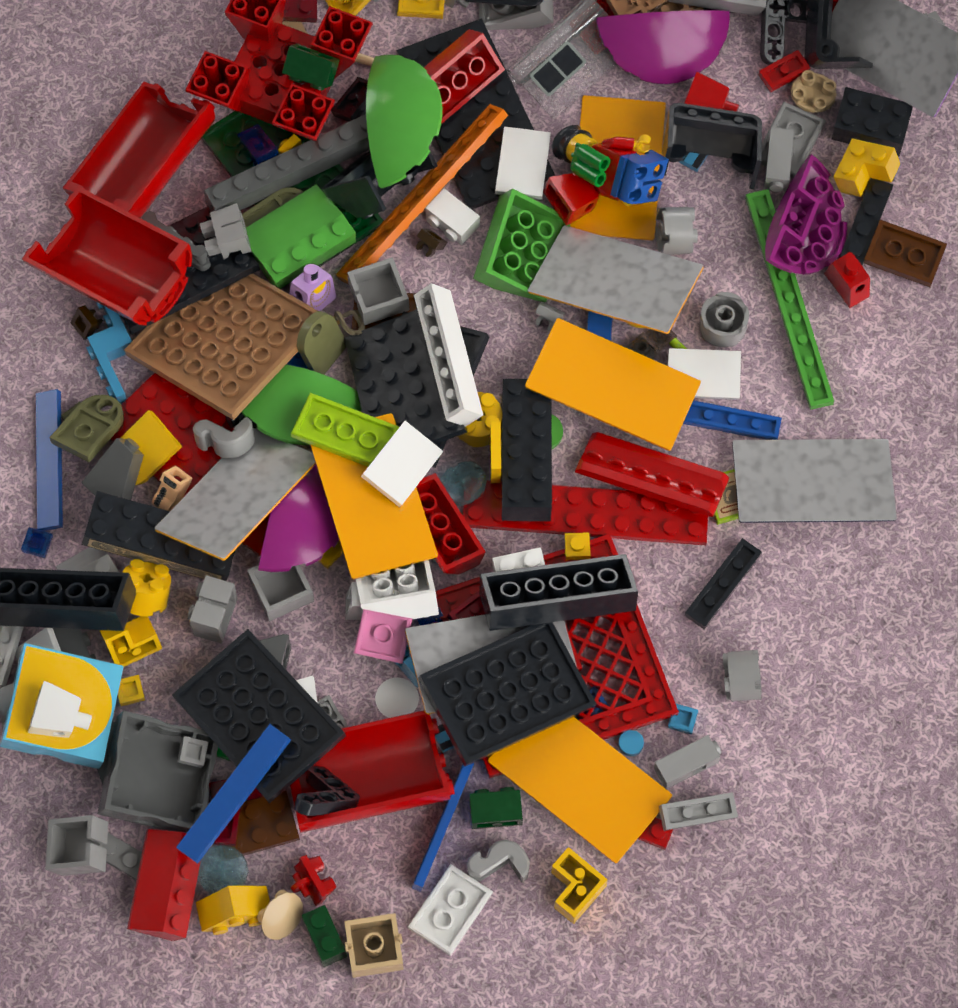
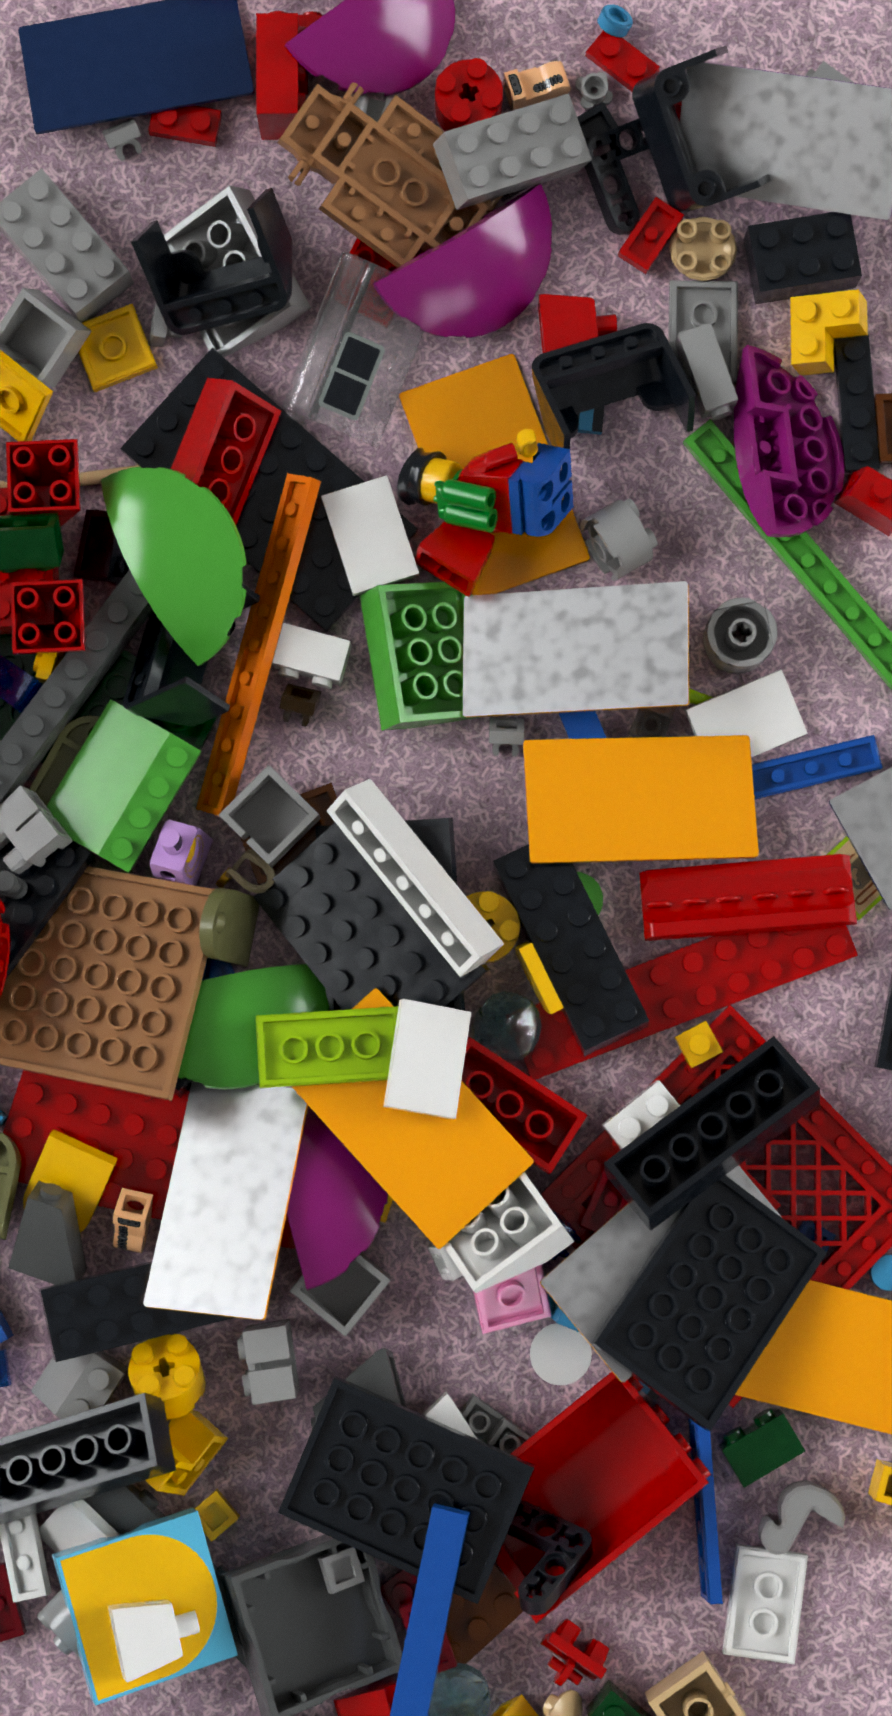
camera: 25 degrees left, 15 degrees up
(224, 442) = (172, 1129): light grey animal -> none

